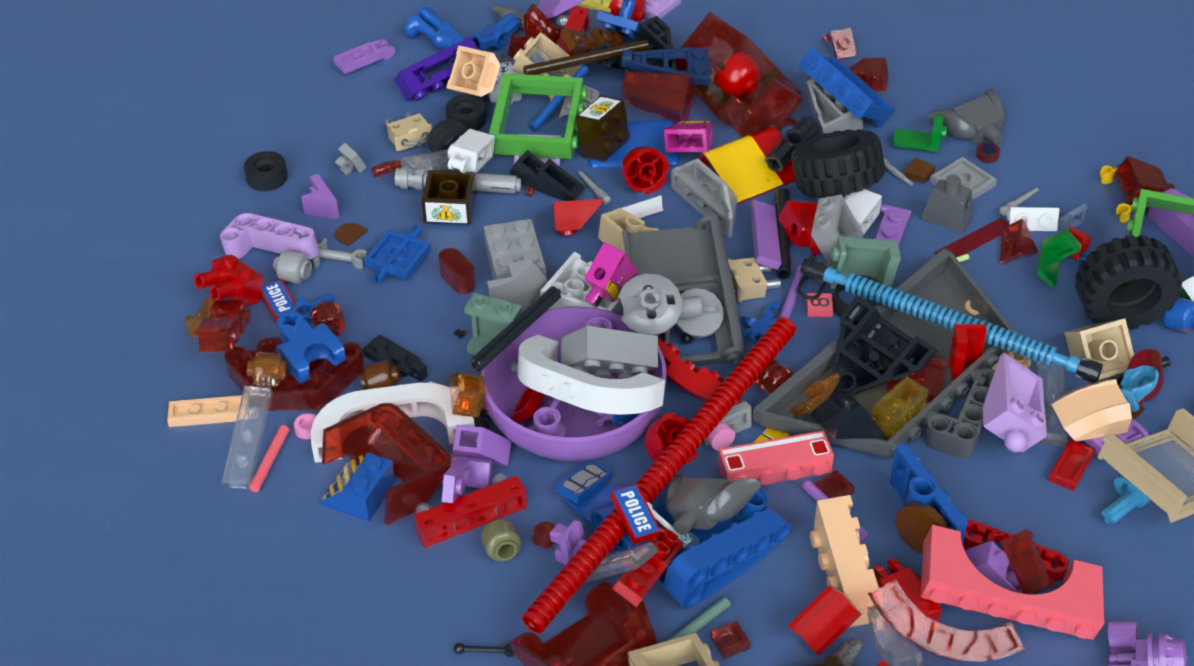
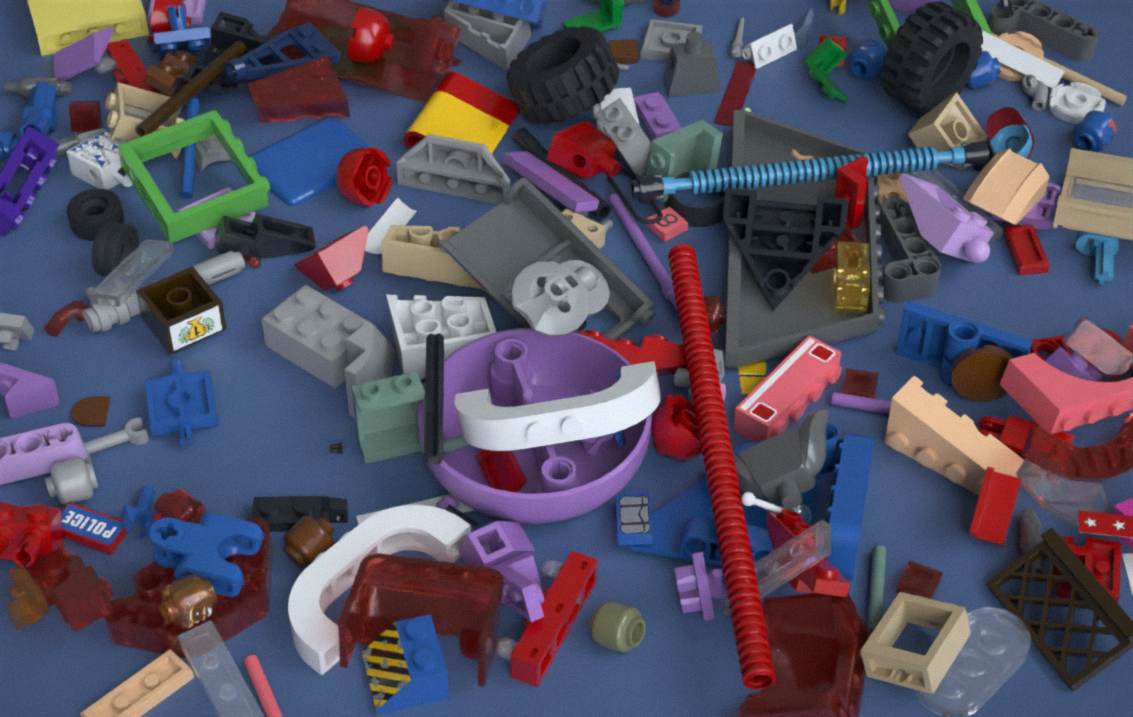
camera: 40 degrees left, 0 degrees up
(303, 425) = (274, 641): bright pink tile -> none
(408, 131) = (47, 265): tan piece -> none
(457, 270) = (269, 383): clear red beam -> none
(467, 393) = (444, 495): clear orange slope -> none
(471, 151) = (162, 247): white brick -> none
(473, 72) = (74, 161): light nougat slope -> none
(536, 23) = (85, 84): clear red slope -> none
(542, 534) = (650, 587): clear red plate -> none
(599, 192) = (331, 226): light grey piece -> none
(602, 128) = (282, 154): dark brown brick -> none
(608, 274) = (474, 293): dark pink torso -> none
(609, 352) = (562, 367): light grey brick -> none
(635, 514) = (750, 509): tile -> none
(694, 136) = (379, 120): dark pink torso -> none
(760, 326) = (645, 270): blue piece -> none
(781, 154) = (491, 79): black piece -> none
(817, 395) = (765, 305): clear orange slope -> none
(846, 419) = (823, 311): black slope -> none
(1016, 242) = (777, 75): clear red slope -> none

